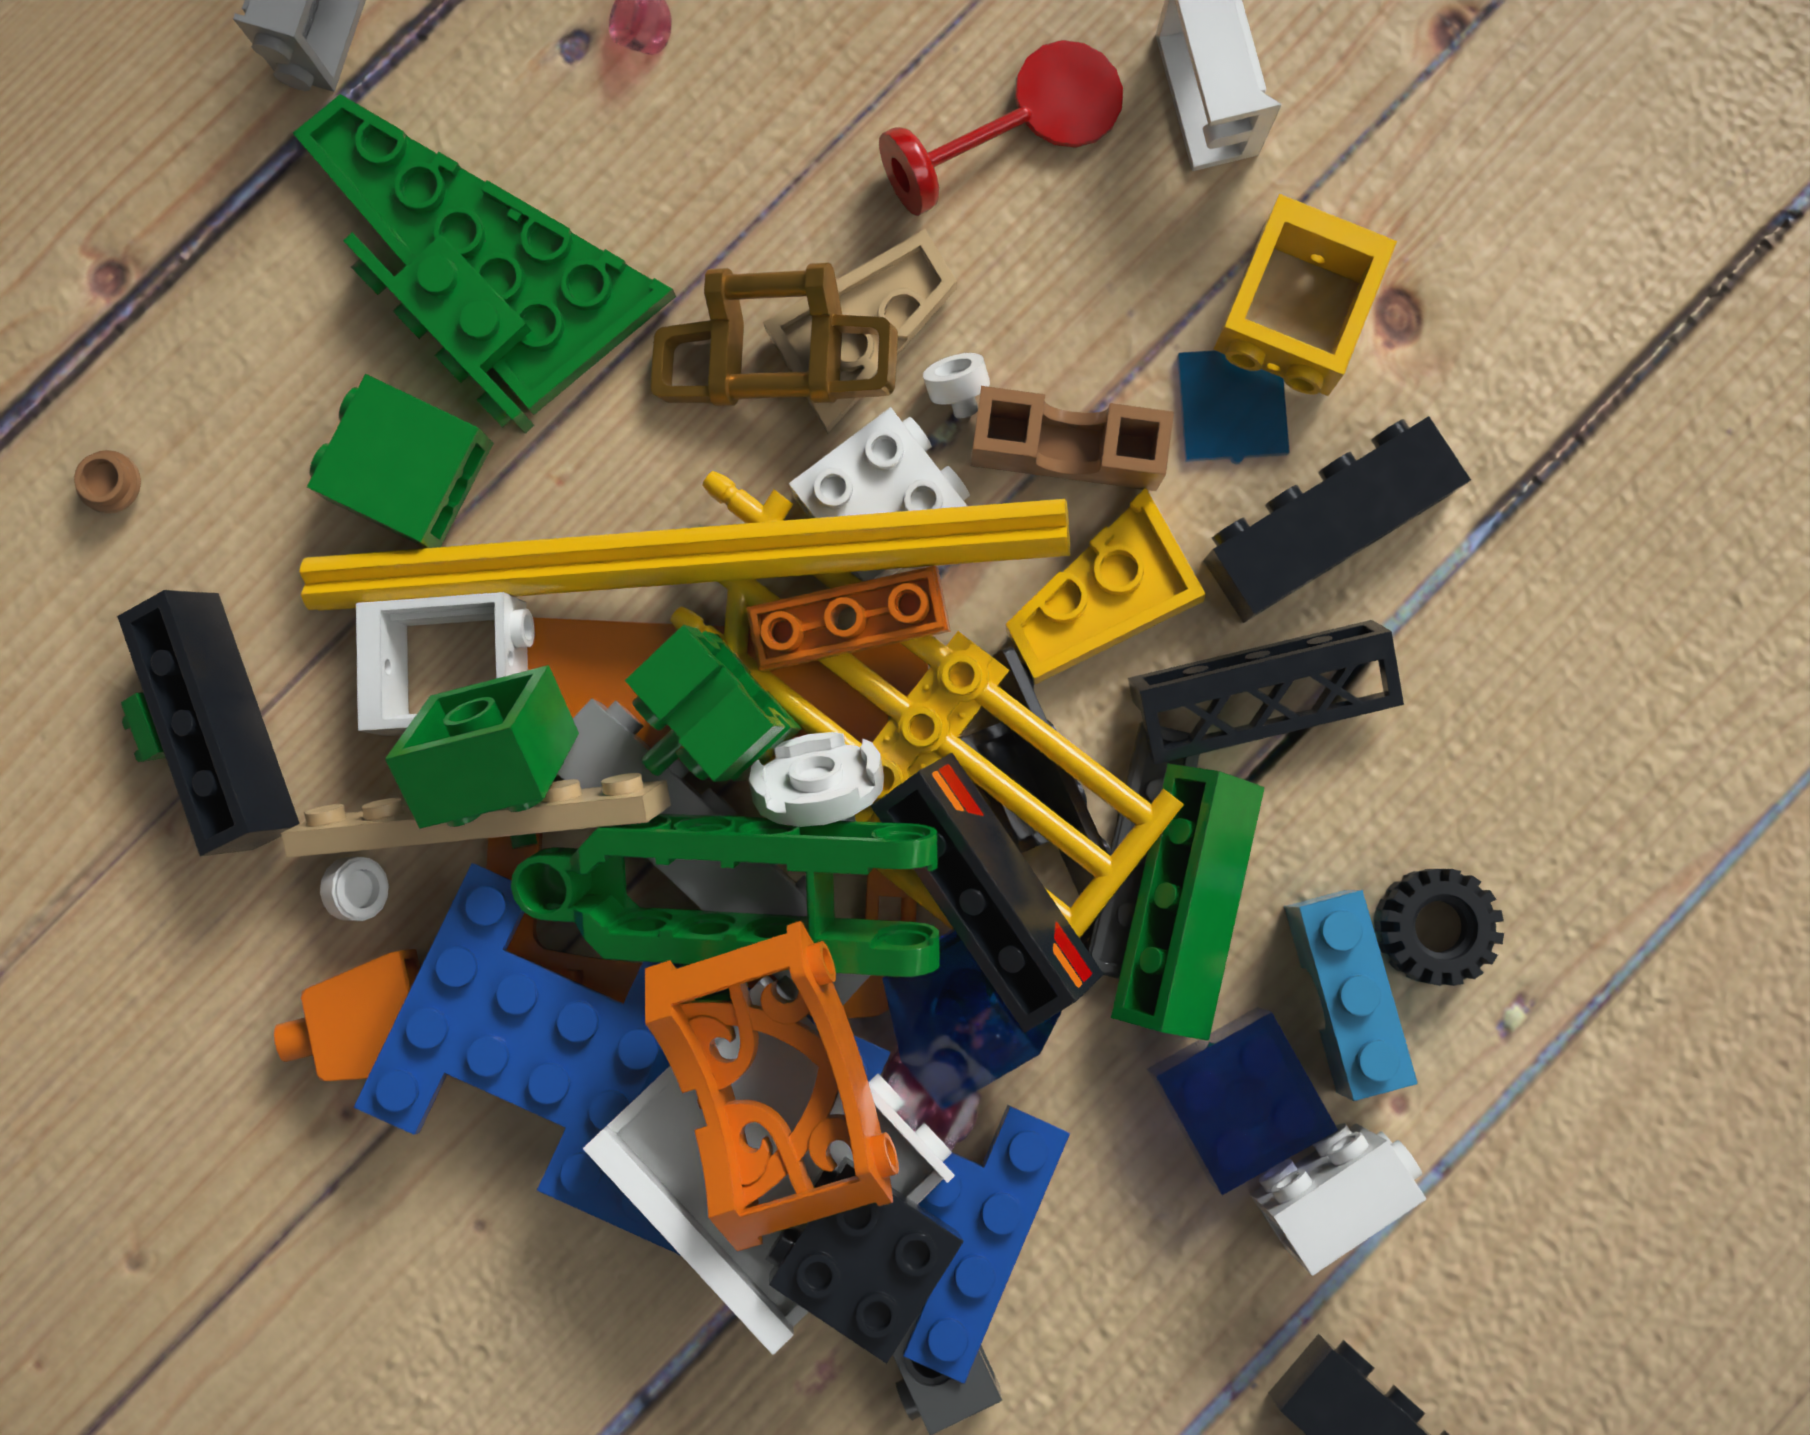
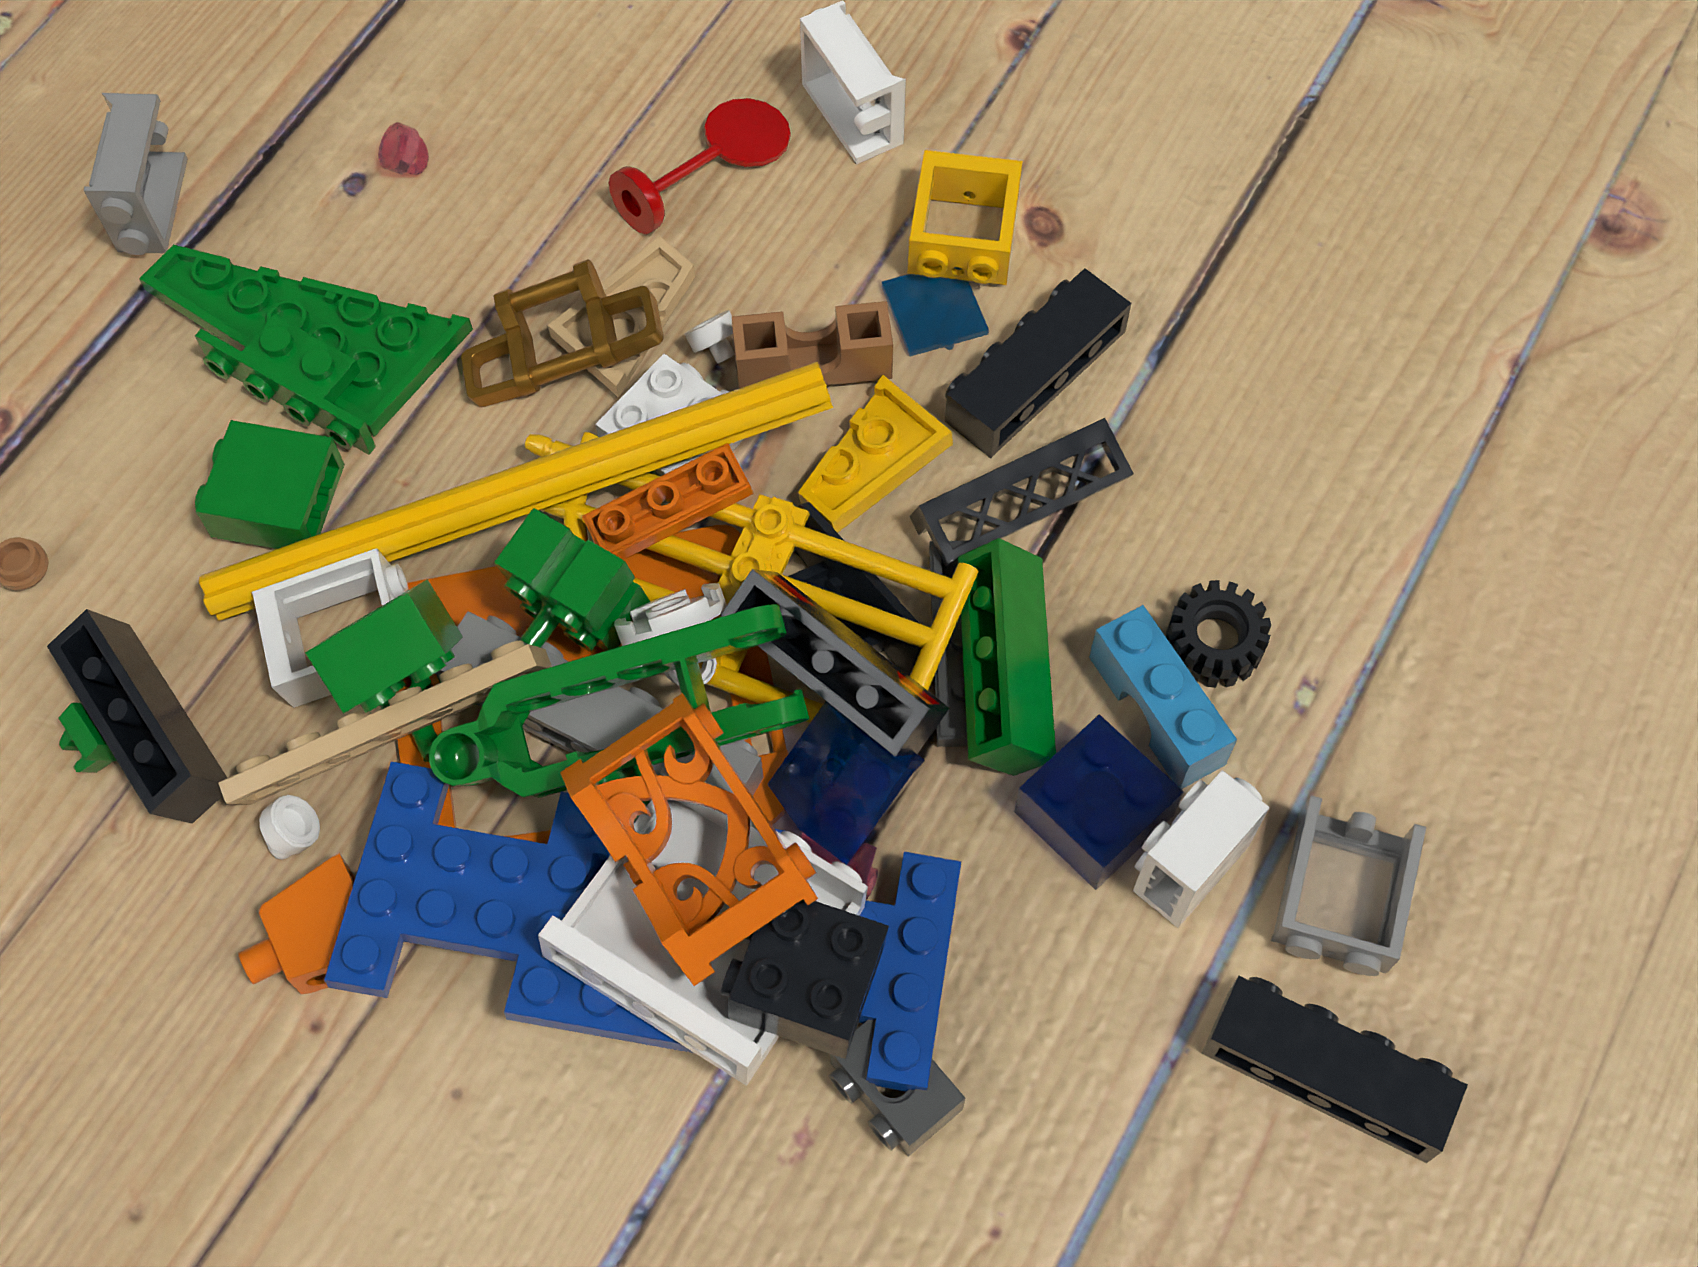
camera: 20 degrees left, 20 degrees down
(1487, 1271) = (1348, 891): none -> window

